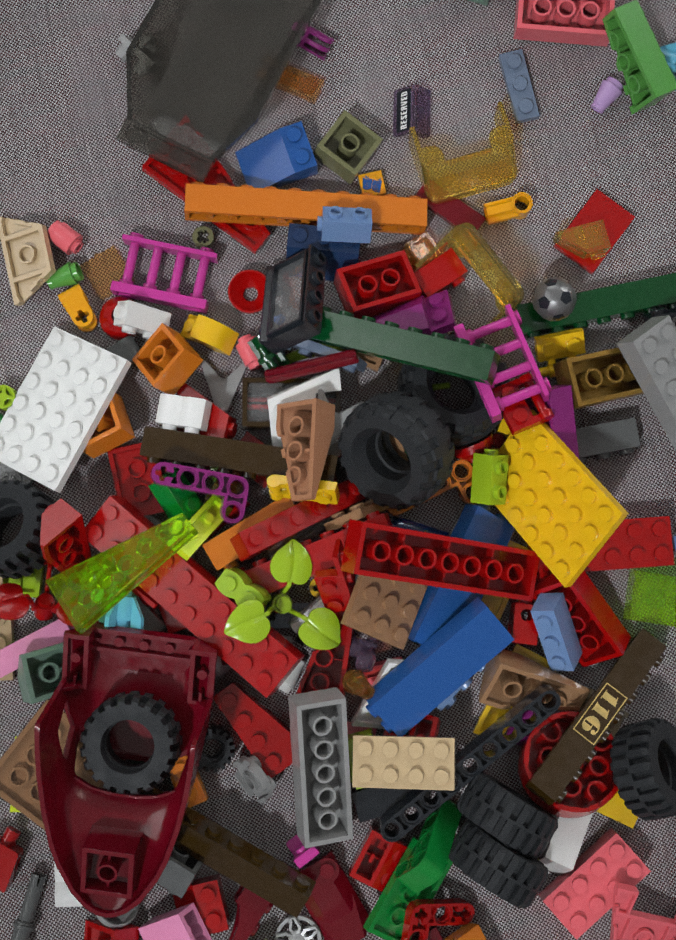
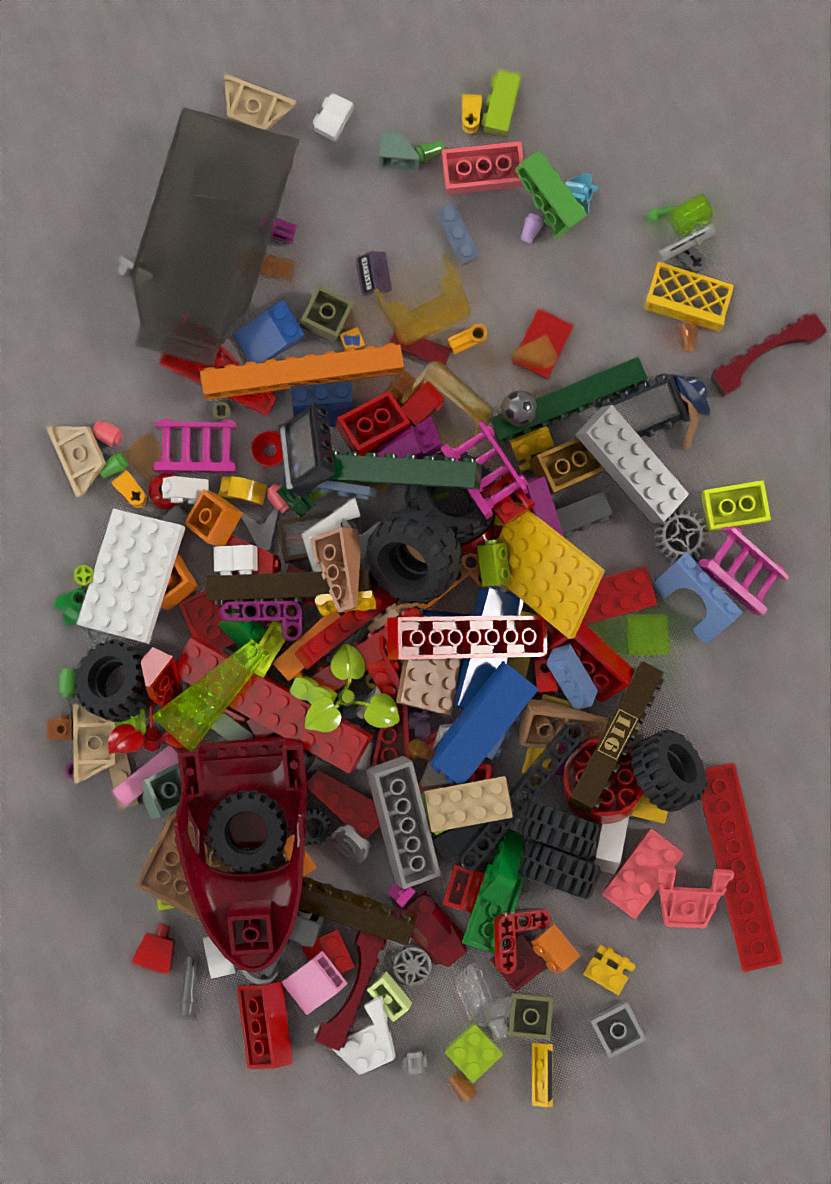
camera: 15 degrees left, 0 degrees up
(124, 614) = (221, 730): medium azure brick -> none
(312, 366) = (332, 501): dark red axle -> none
(345, 224) = (337, 380): medium blue brick -> none

